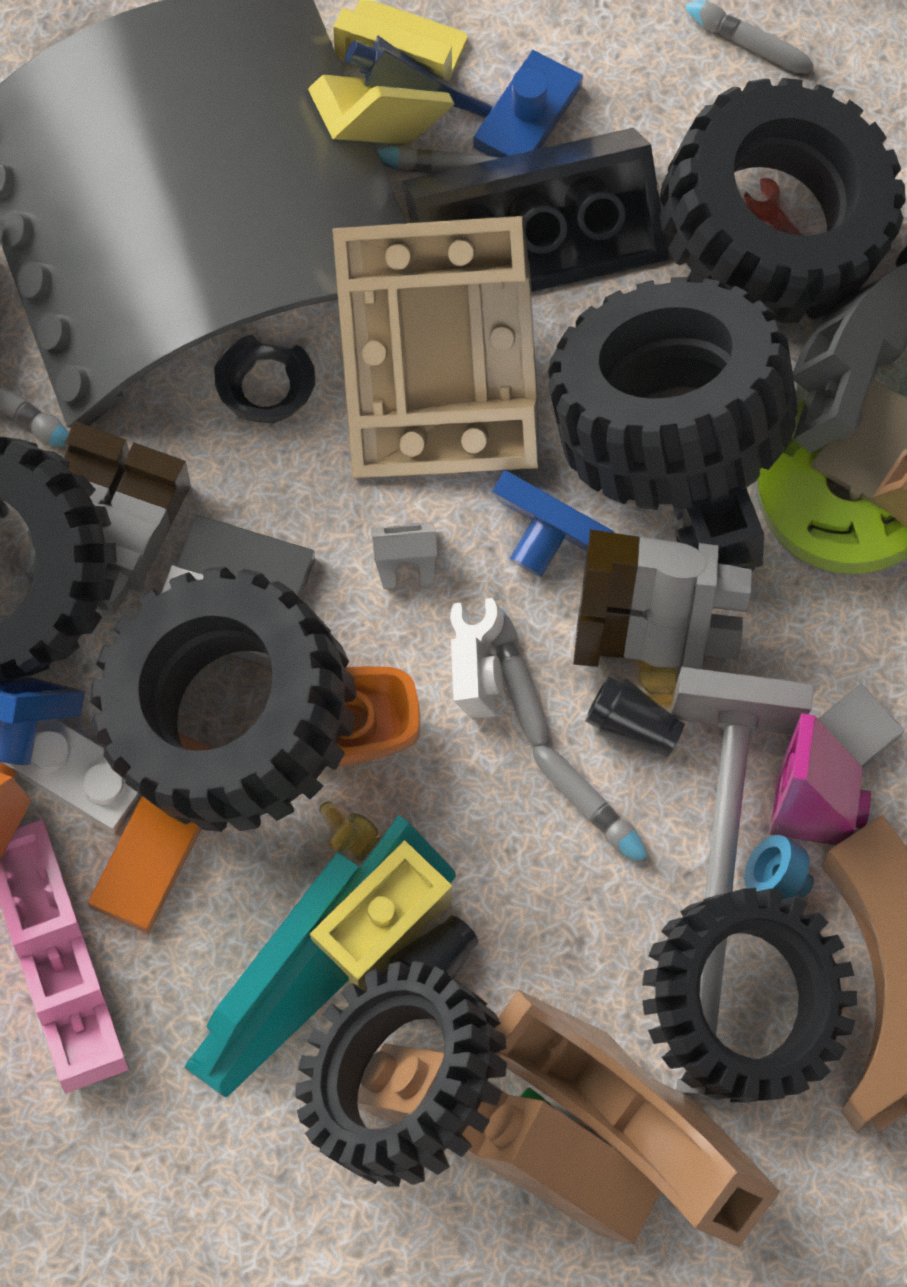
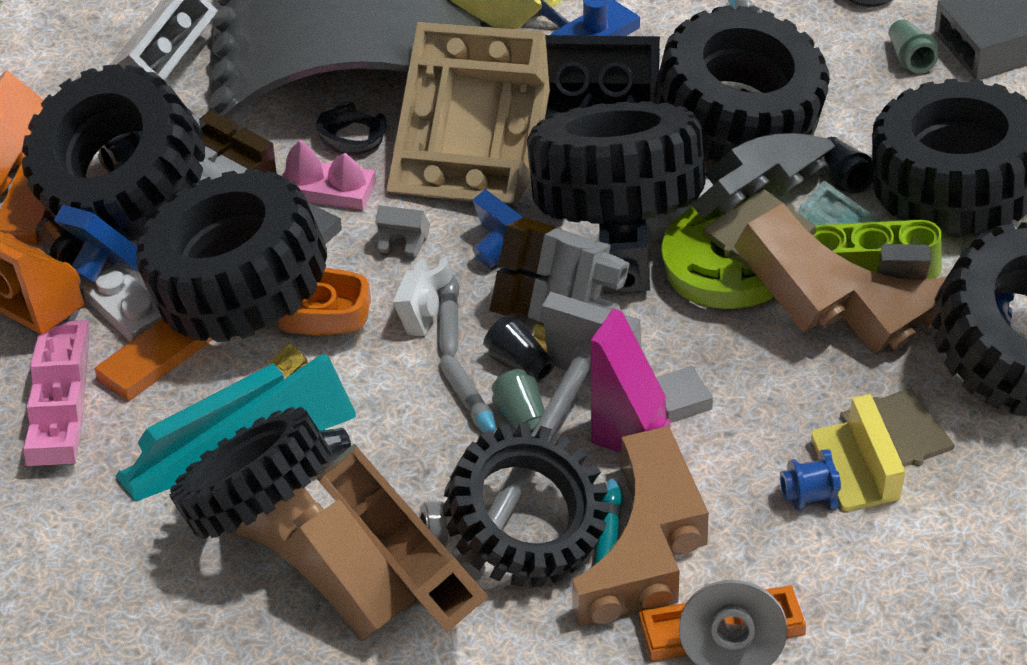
camera: 20 degrees right, 25 degrees down
(267, 487) = (333, 184): none -> bright pink tile
(383, 914) = (305, 388): light yellow panel -> none
(633, 1037) = (432, 516): none -> light grey tile
(671, 811) = (518, 398): none -> sand green cone
(779, 866) = (593, 444): dark azure tile -> none
(837, 925) = (610, 534): none -> teal piece

